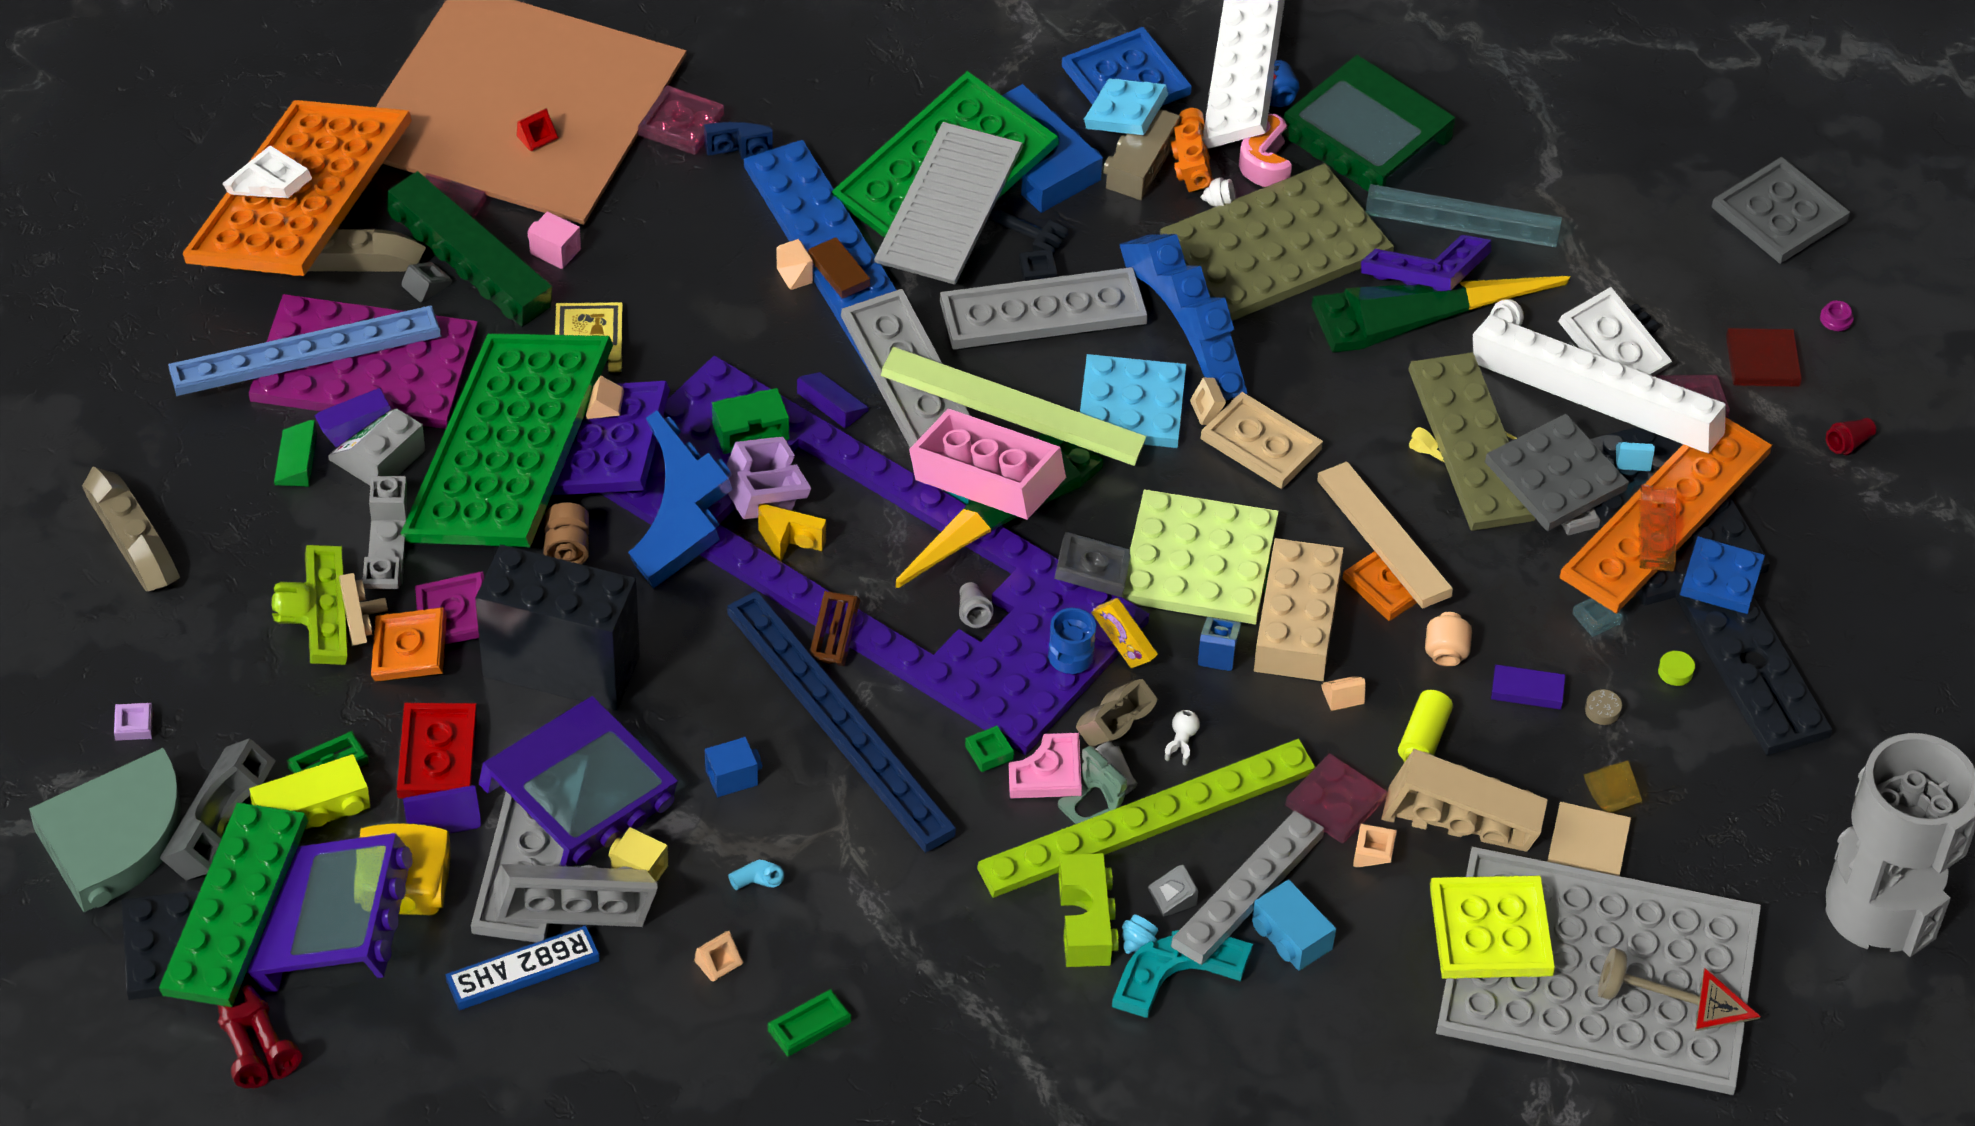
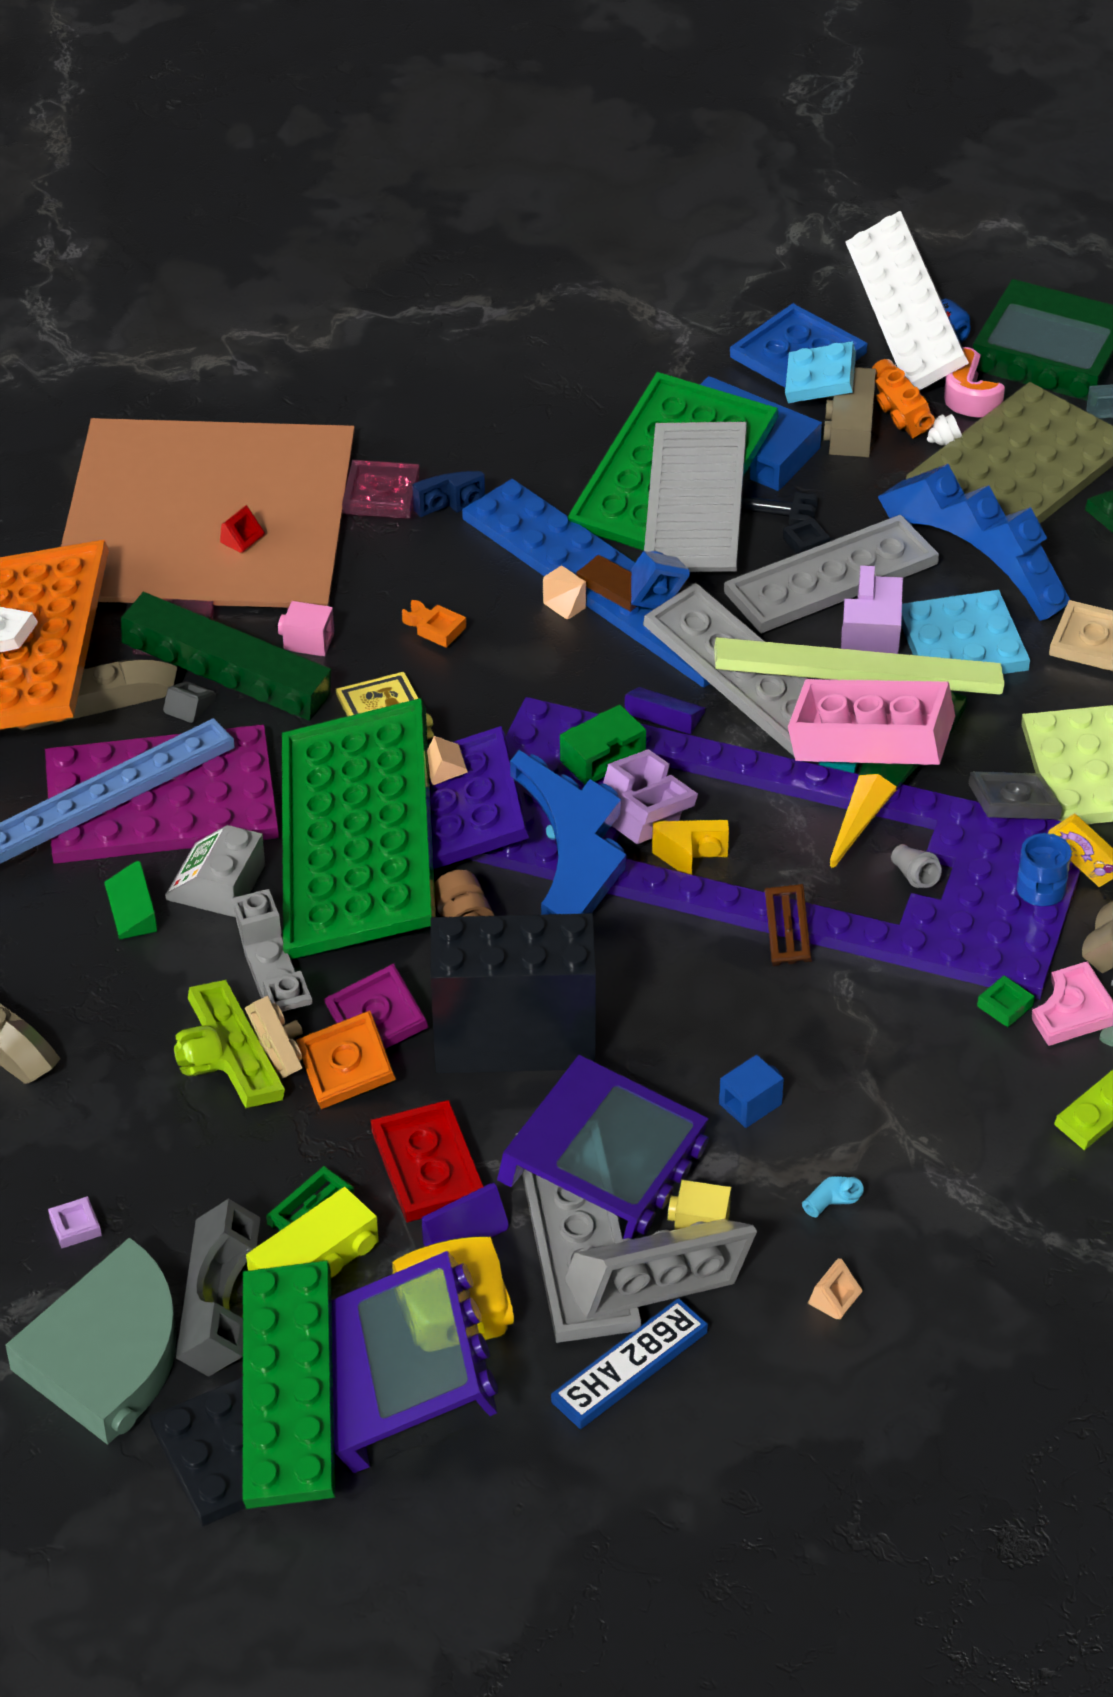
camera: 15 degrees left, 5 degrees down
(249, 1069) = (383, 1561): dark red piece -> none
(352, 416) = (178, 846): dark purple slope -> none
(668, 266) = (436, 625): none -> orange plate
(809, 1022) = (965, 1332): green tile -> none
(841, 722) = (841, 1016): dark blue plate -> none
(868, 275) = (656, 579): none -> blue slope
(1051, 363) = (875, 616): none -> lavender plate
(1207, 400) = (1040, 617): tan tile -> none

